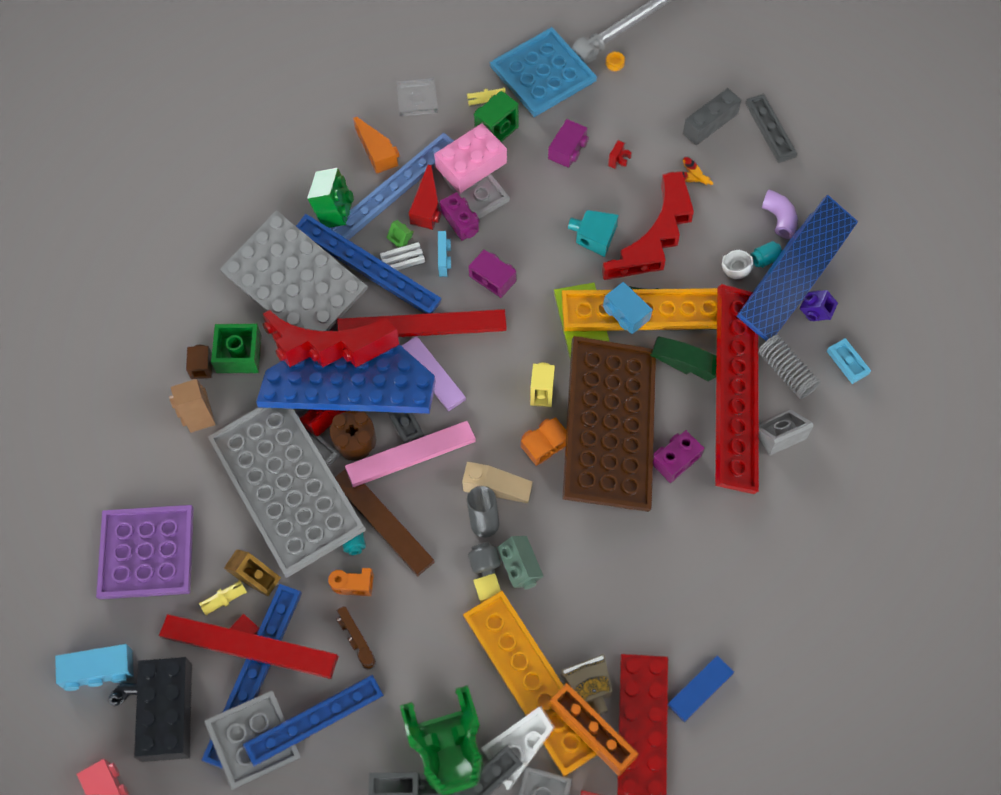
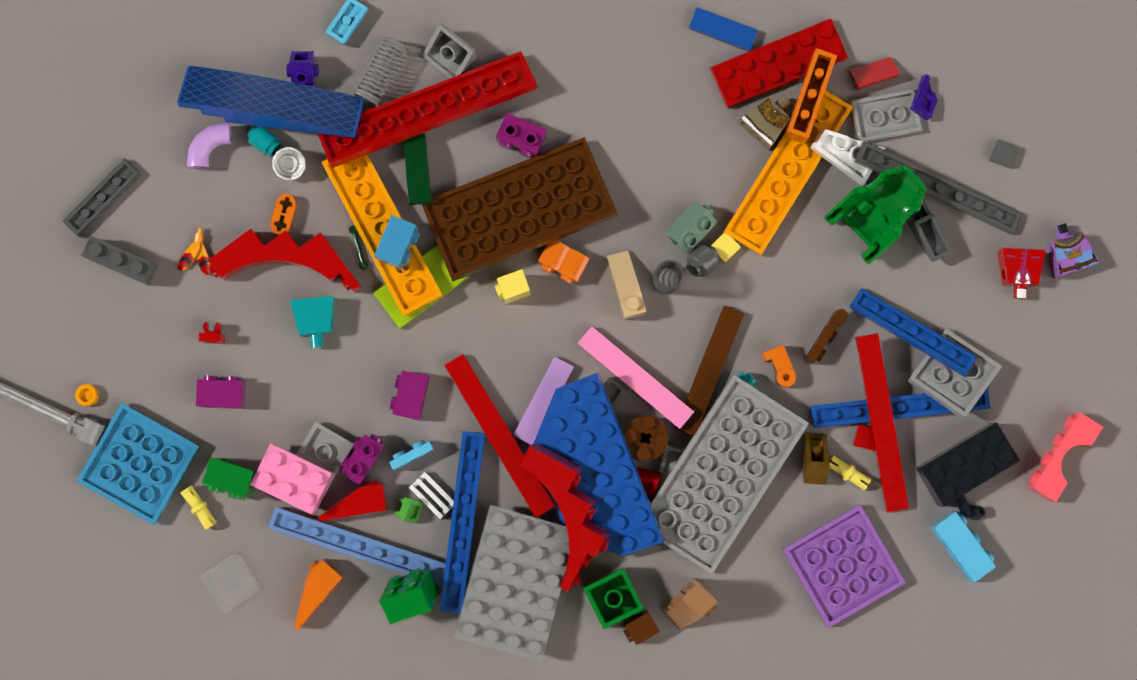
camera: 125 degrees left, 20 degrees up
(695, 245) = (278, 213): none -> orange beam

